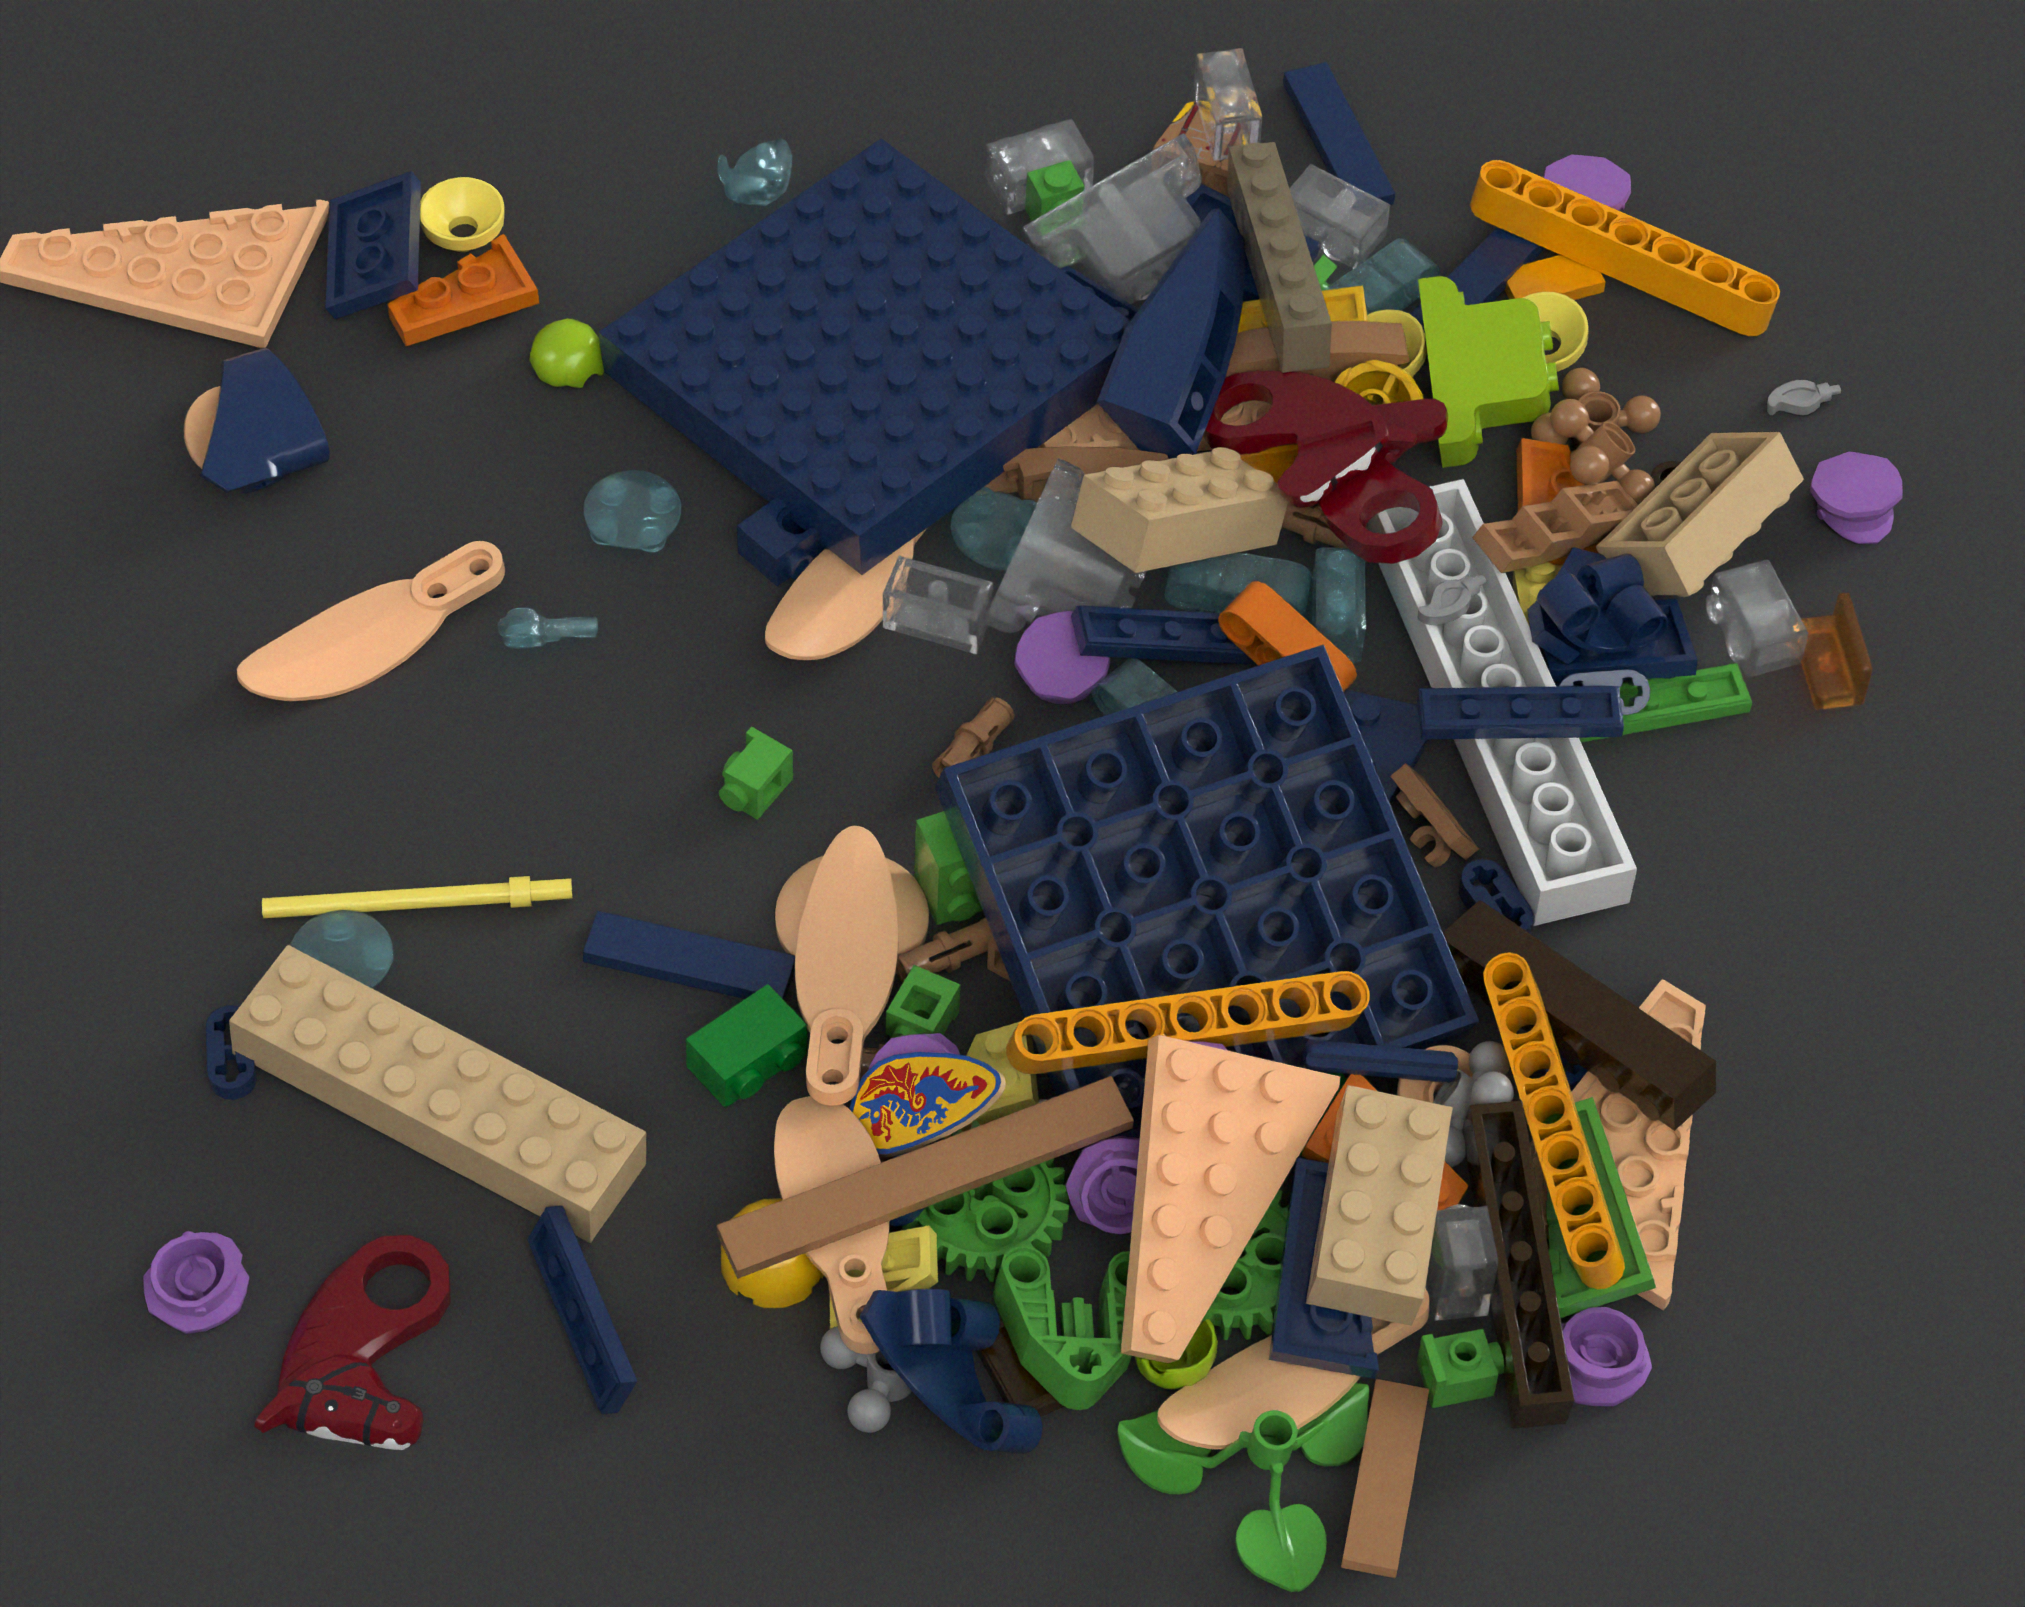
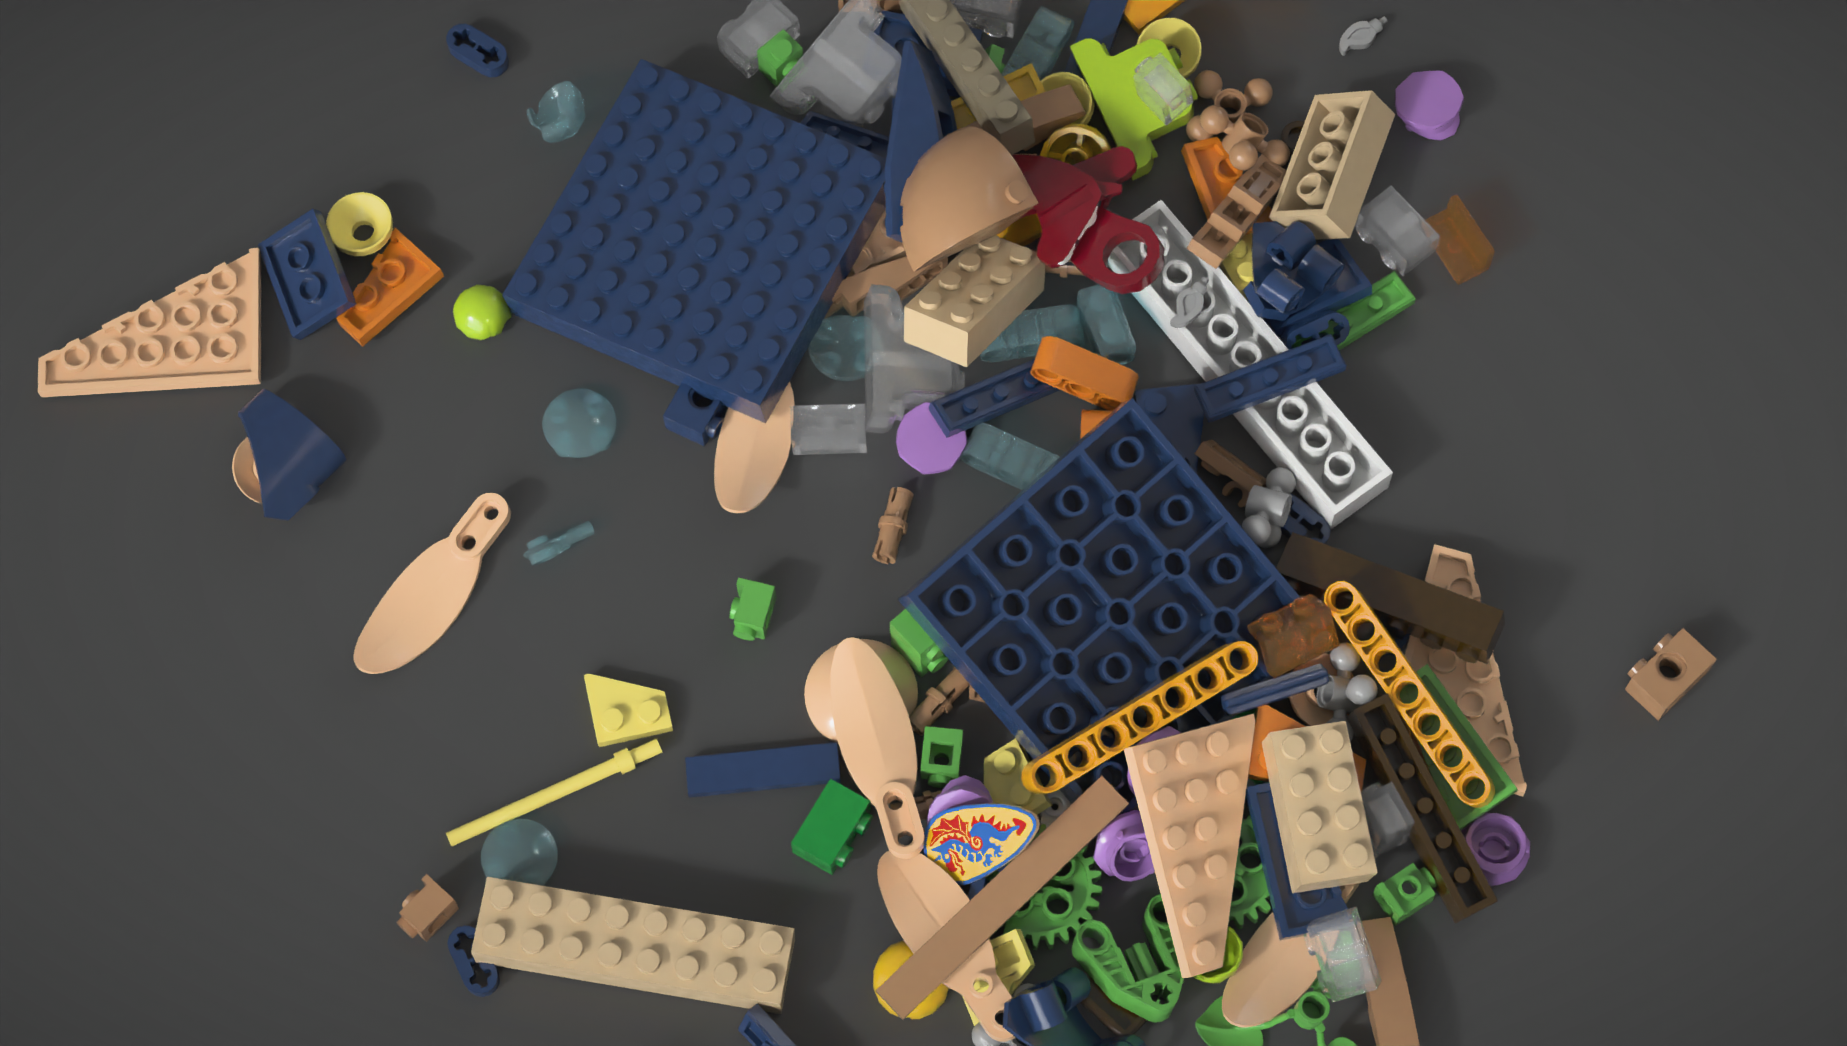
camera: 15 degrees left, 15 degrees up
(199, 972) = (426, 910): none -> medium nougat brick
(548, 838) = (626, 710): none -> light yellow wing
(695, 78) = (481, 44): none -> dark blue beam
(1206, 383) = (961, 196): none -> medium nougat brick
(1341, 1391) = (1342, 954): none -> clear brick
(1431, 1003) = (1295, 634): none -> clear orange bracket
(1456, 861) = (1269, 508): none -> light grey piece
(1512, 346) = (1162, 88): none -> clear brick
(1900, 1249) = (1659, 692): none -> medium nougat brick

